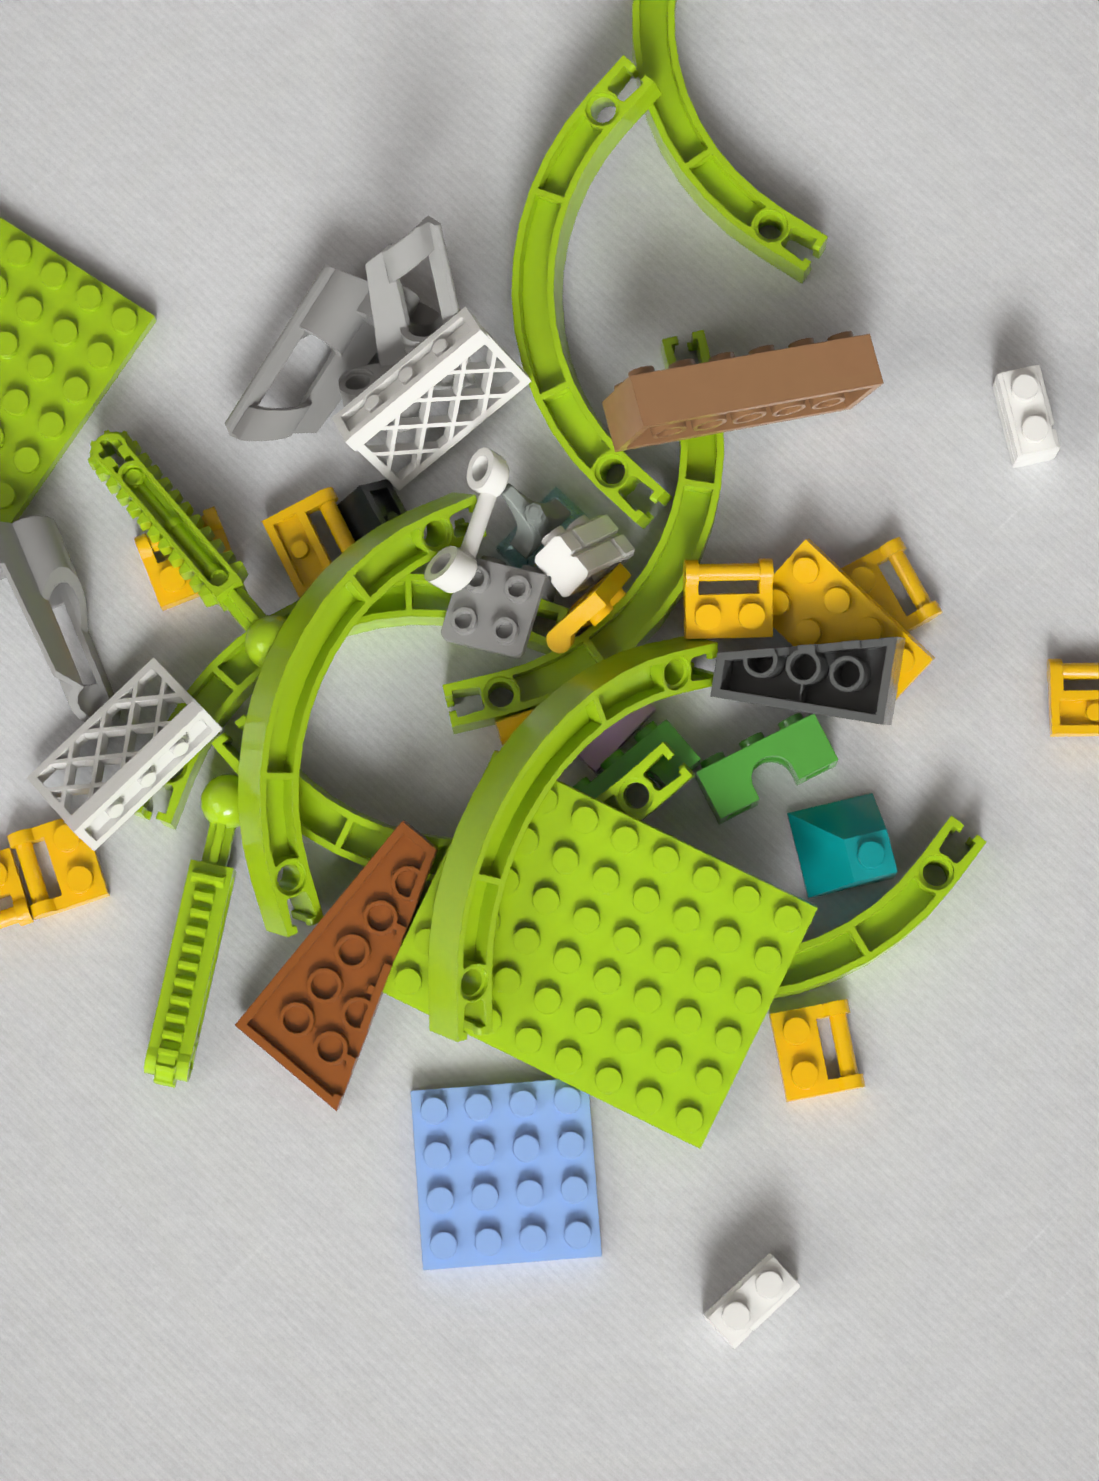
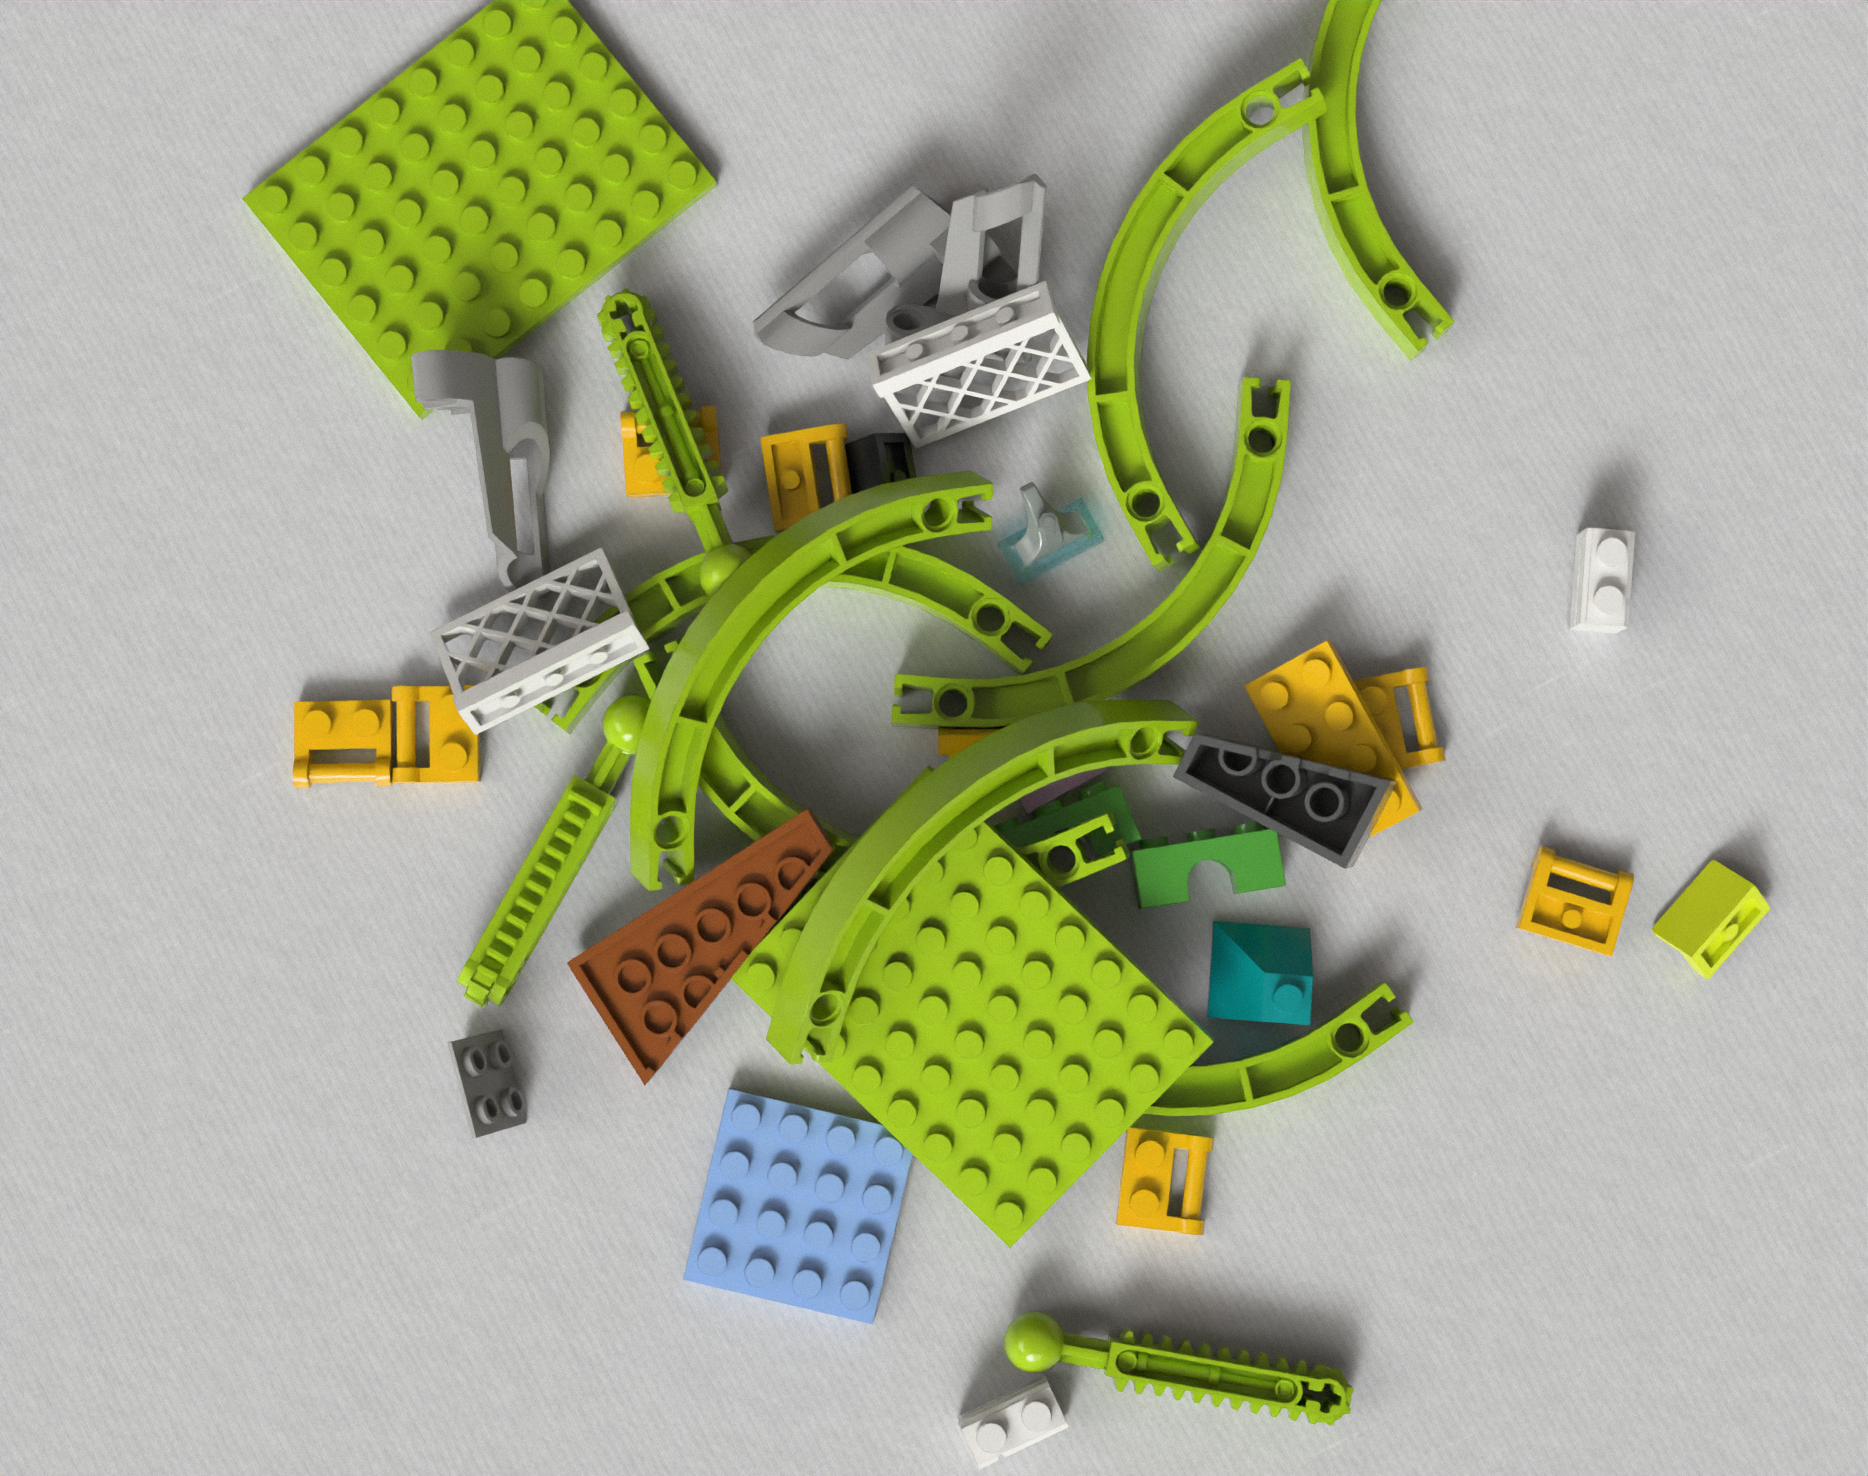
camera: 10 degrees right, 5 degrees up
(198, 1150) = (487, 1083): none -> light grey hinge
(456, 567) = (946, 556): white piece -> none
(497, 607) = (977, 607): light grey bracket -> none
(582, 553) = (1087, 581): white brick -> none
(589, 609) = (1075, 641): yellow plate -> none
(728, 613) = (1218, 692): yellow plate -> none
(741, 390) = (1310, 462): medium nougat brick -> none
(751, 1224) = (1037, 1343): none -> lime gear

